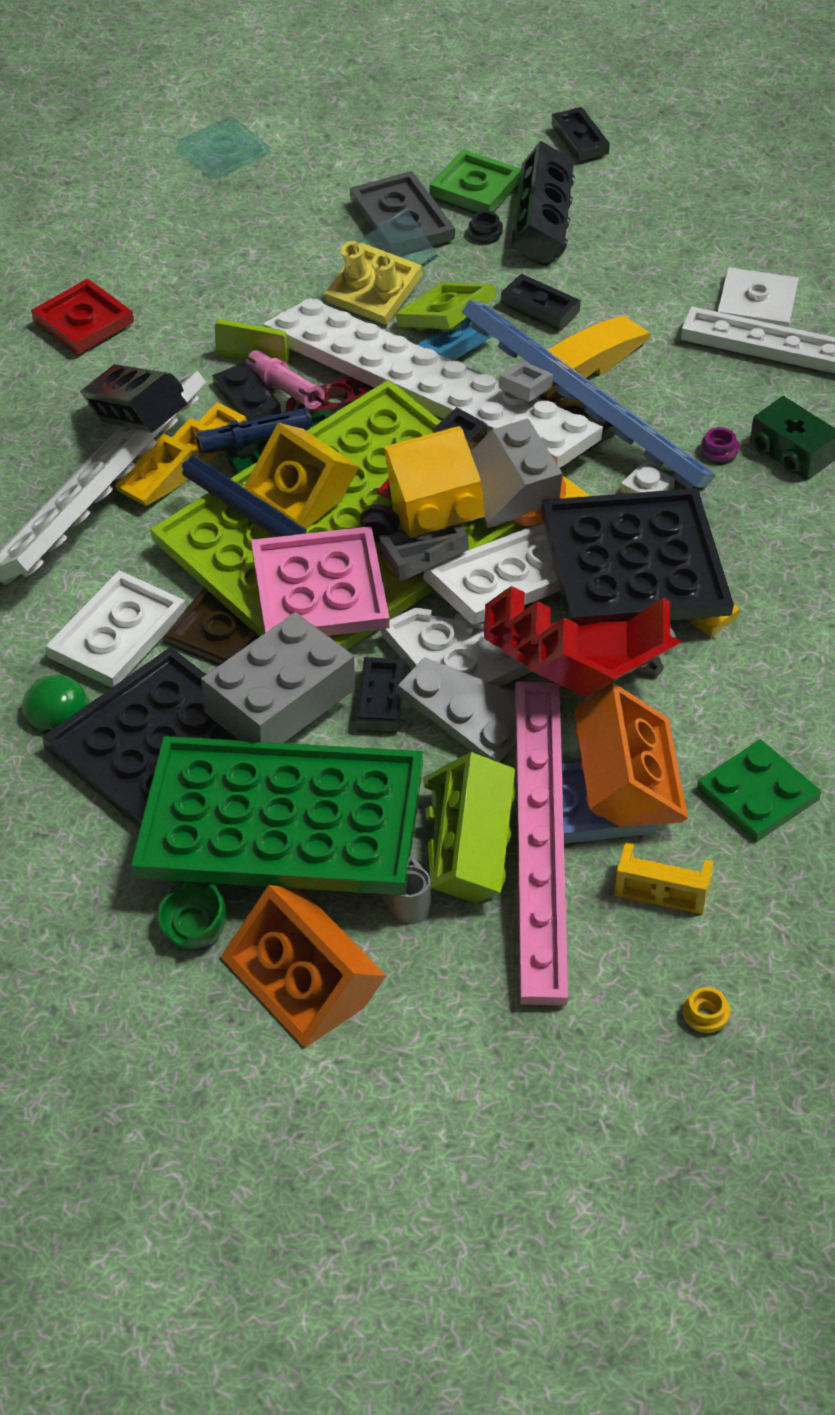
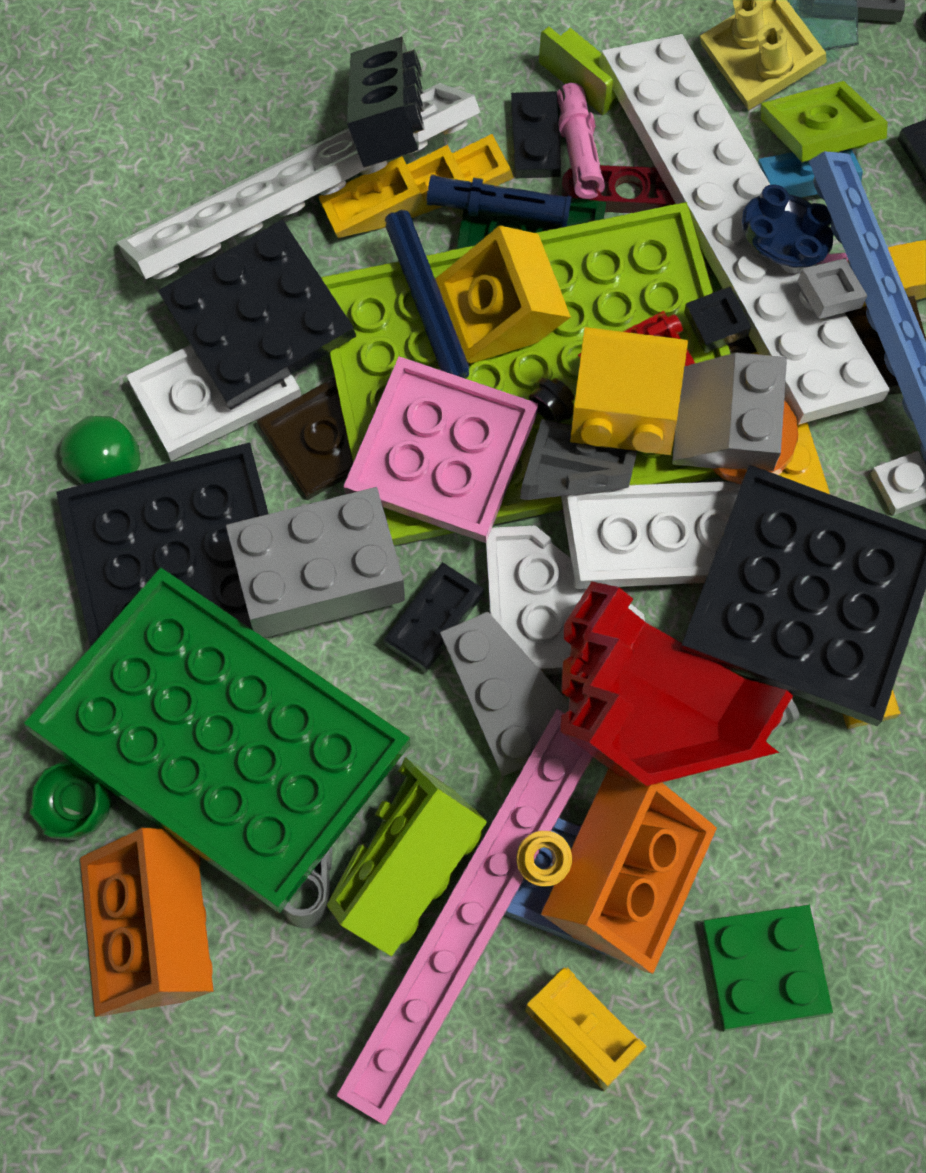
camera: 30 degrees right, 20 degrees up
(122, 565) = (257, 314): none -> black plate
(470, 362) = (787, 228): none -> dark blue dish
(574, 761) = (561, 858): none -> yellow plate

